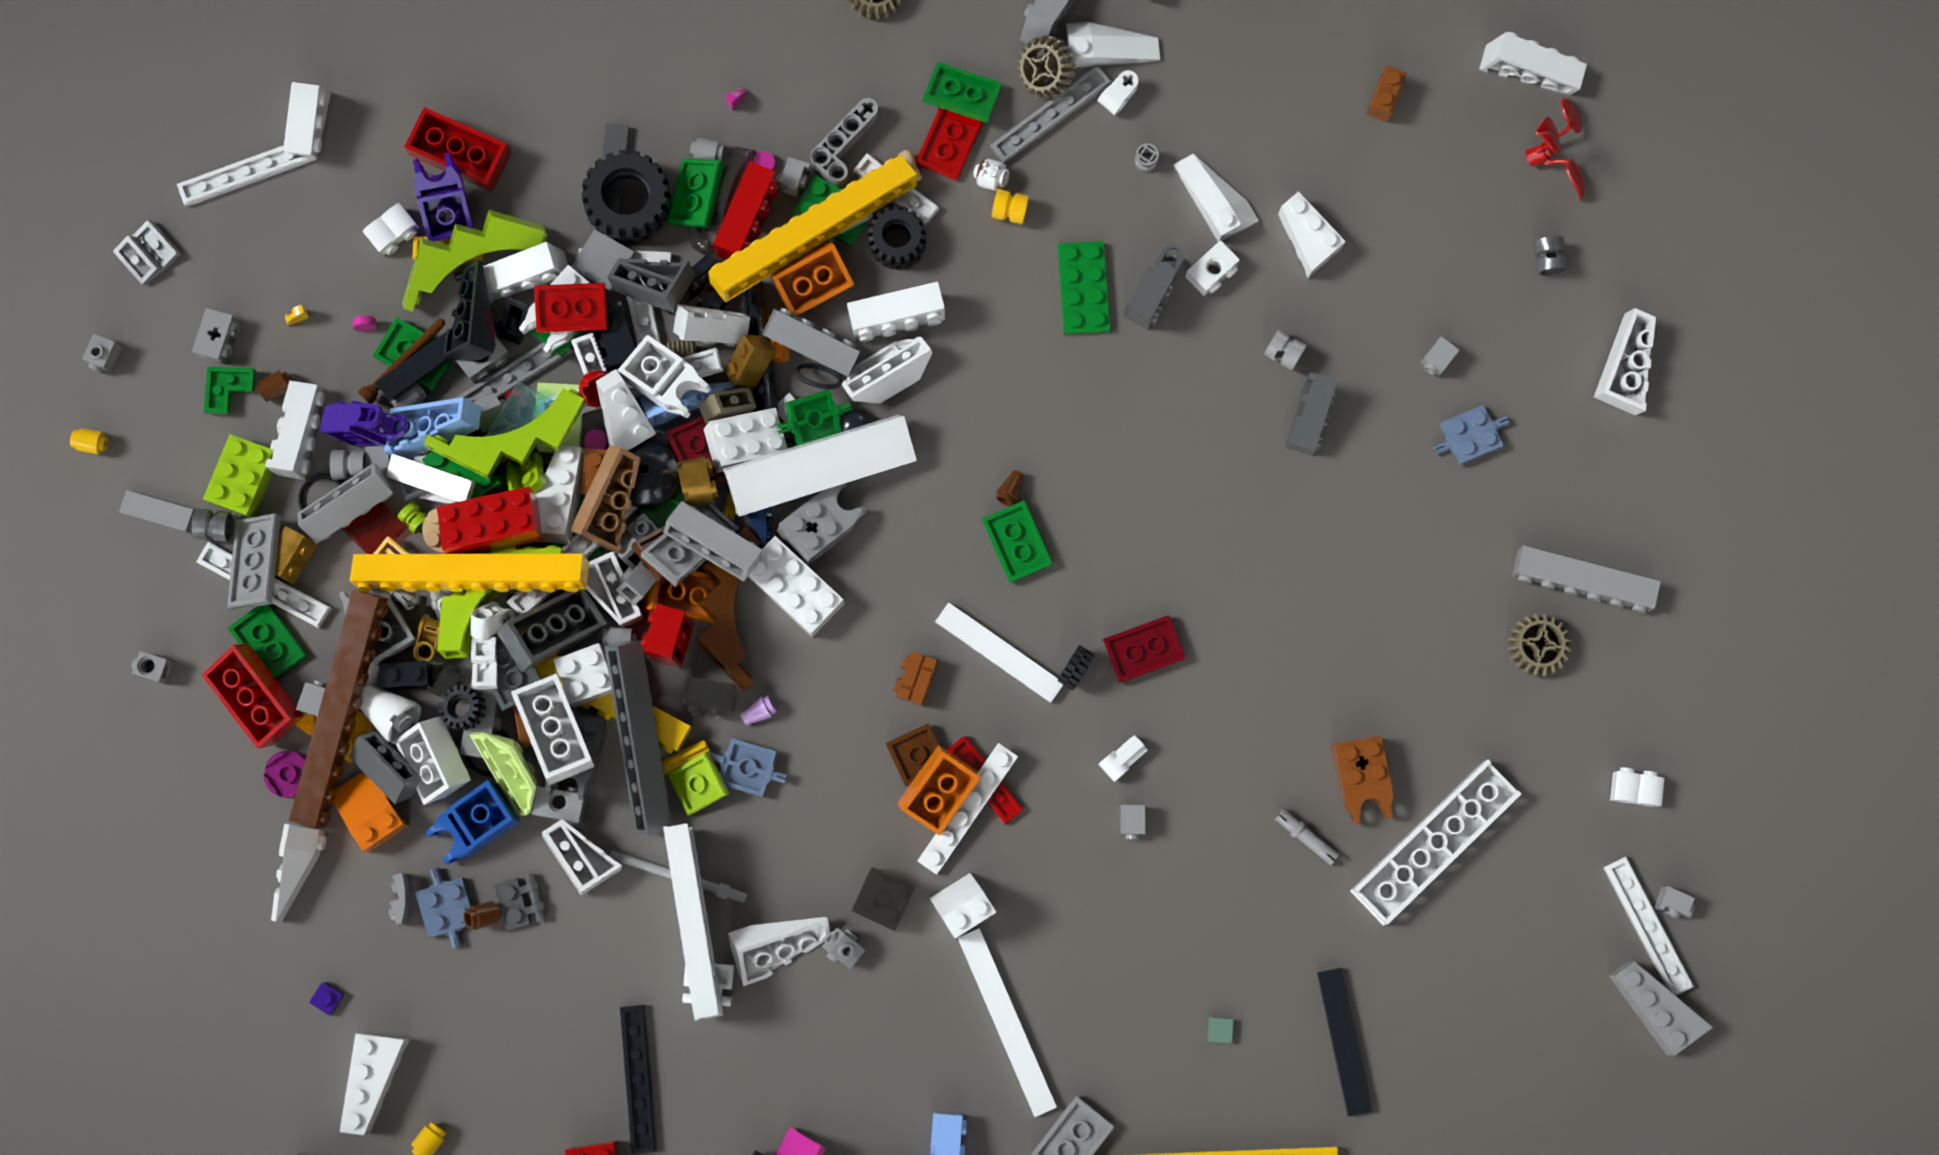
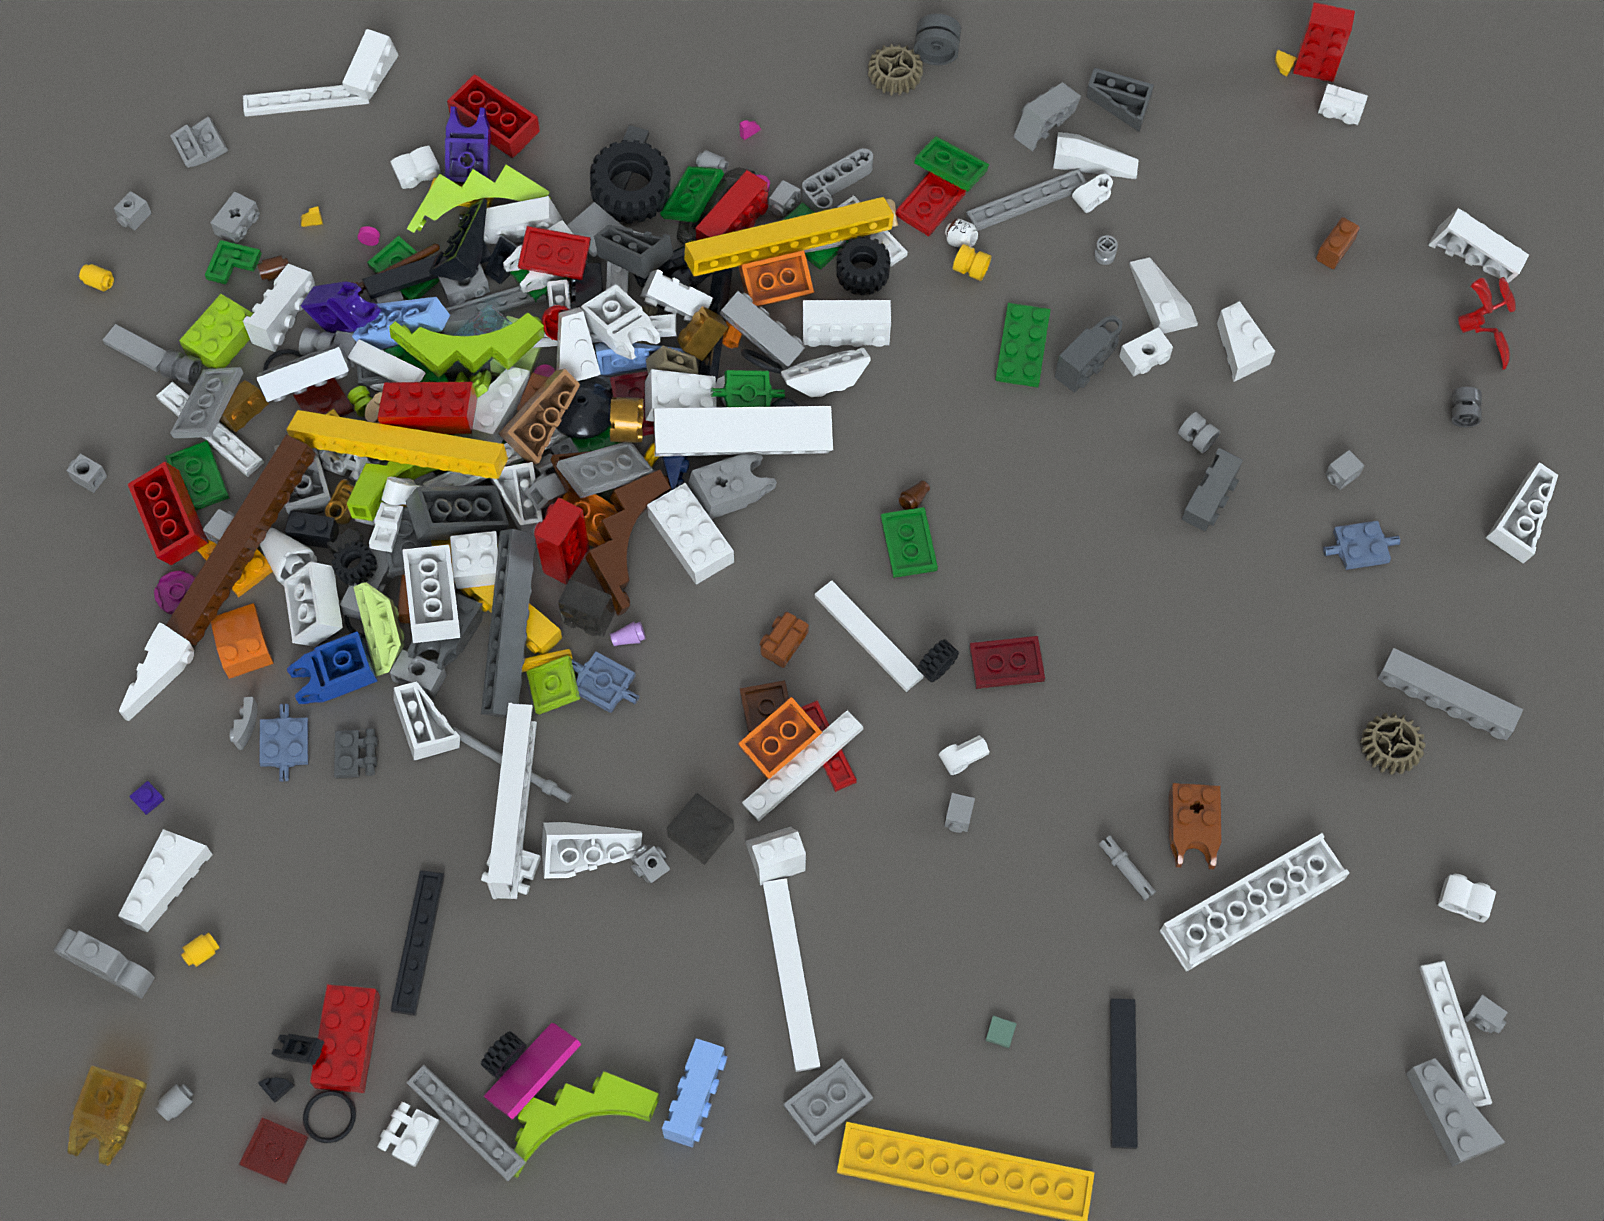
camera: 15 degrees right, 15 degrees down
(385, 767) = (267, 601): dark grey brick -> none
(482, 915) = (316, 754): reddish brown brick -> none
(712, 541) = (626, 468): light grey brick -> none
(1056, 63) = (1043, 150): dark tan gear -> none

